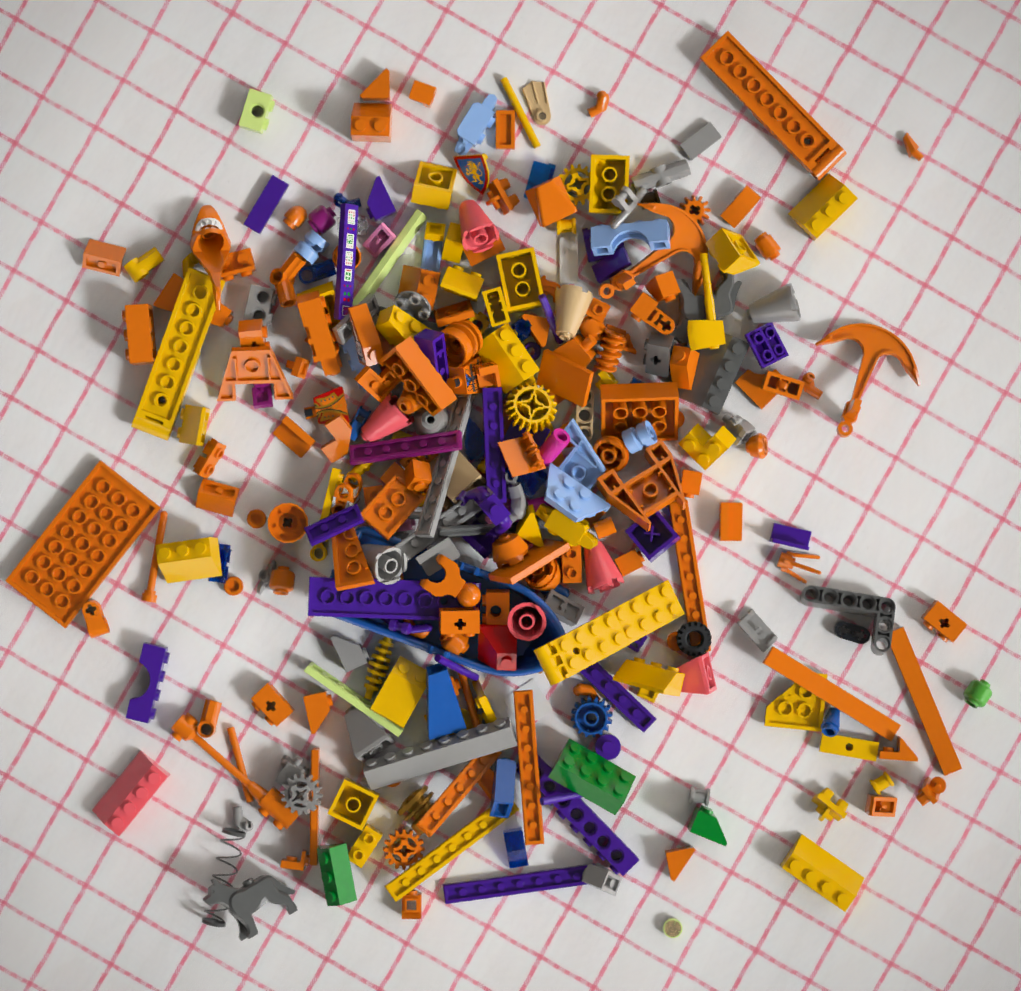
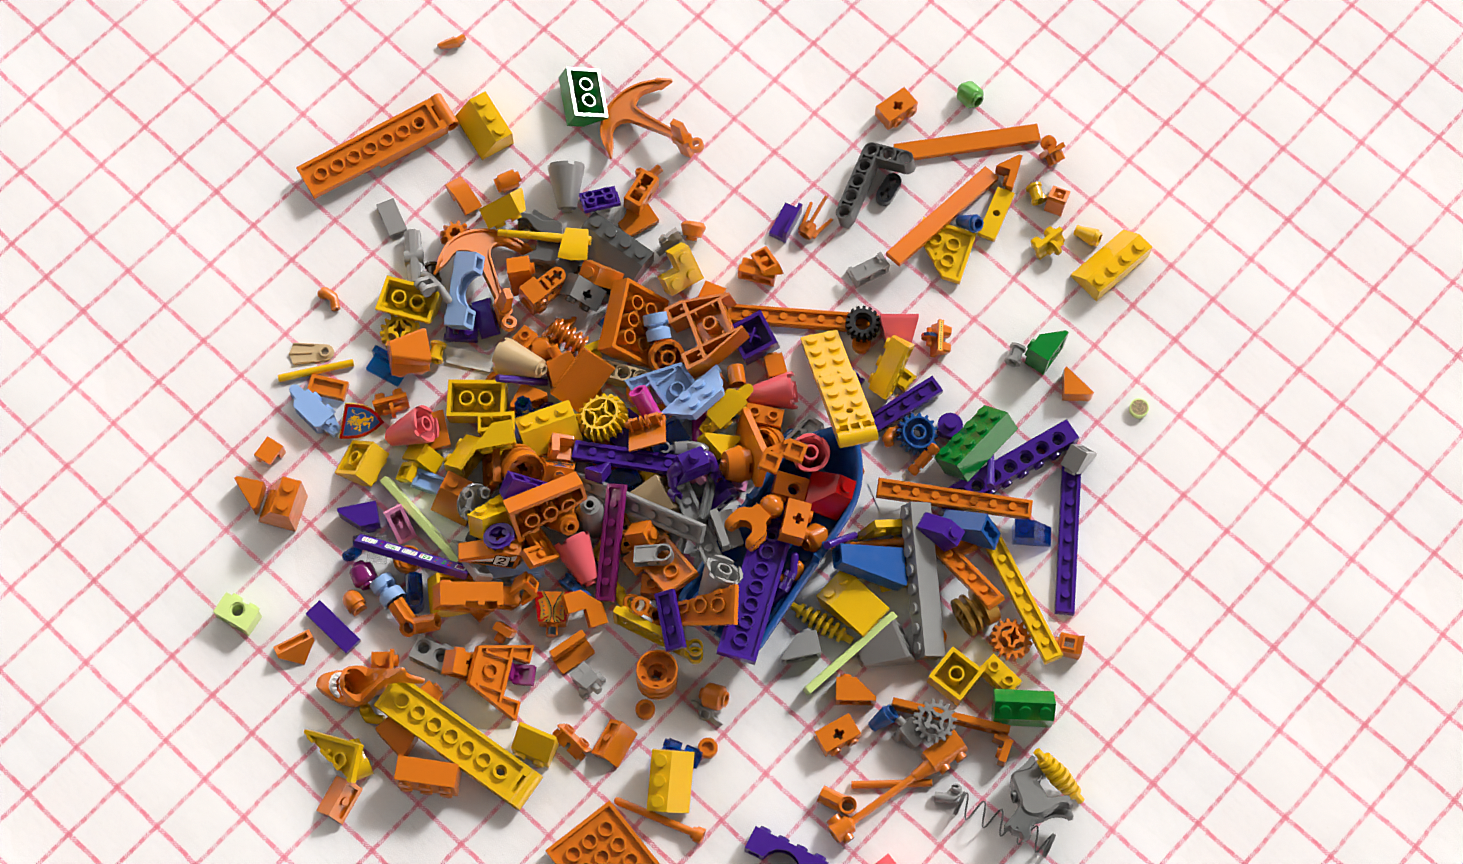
camera: 80 degrees left, 20 degrees down
(143, 248) = (342, 753): none -> yellow wing
(237, 175) = (296, 648): none -> orange slope
(269, 458) = (587, 680): none -> light grey piece
(278, 919) = (1058, 775): none -> yellow piece
(298, 744) = (883, 718): none -> blue cone
(342, 378) = (528, 583): none -> orange window
(383, 335) = (495, 531): none -> dark purple gear
(396, 487) = (647, 555): none -> light grey piece
(472, 417) = (598, 473): none -> dark purple slope
(479, 314) = (498, 435): none -> yellow slope
(488, 761) = (940, 530): none -> dark purple slope
(512, 587) = (787, 449): none -> orange tile
(566, 728) = (923, 459): none -> orange axle
(698, 713) = (934, 338): none -> orange hips
(737, 528) = (766, 262): none -> orange slope
(848, 844) = (1089, 235): none -> yellow cone
(879, 298) = (583, 96): none -> green slope

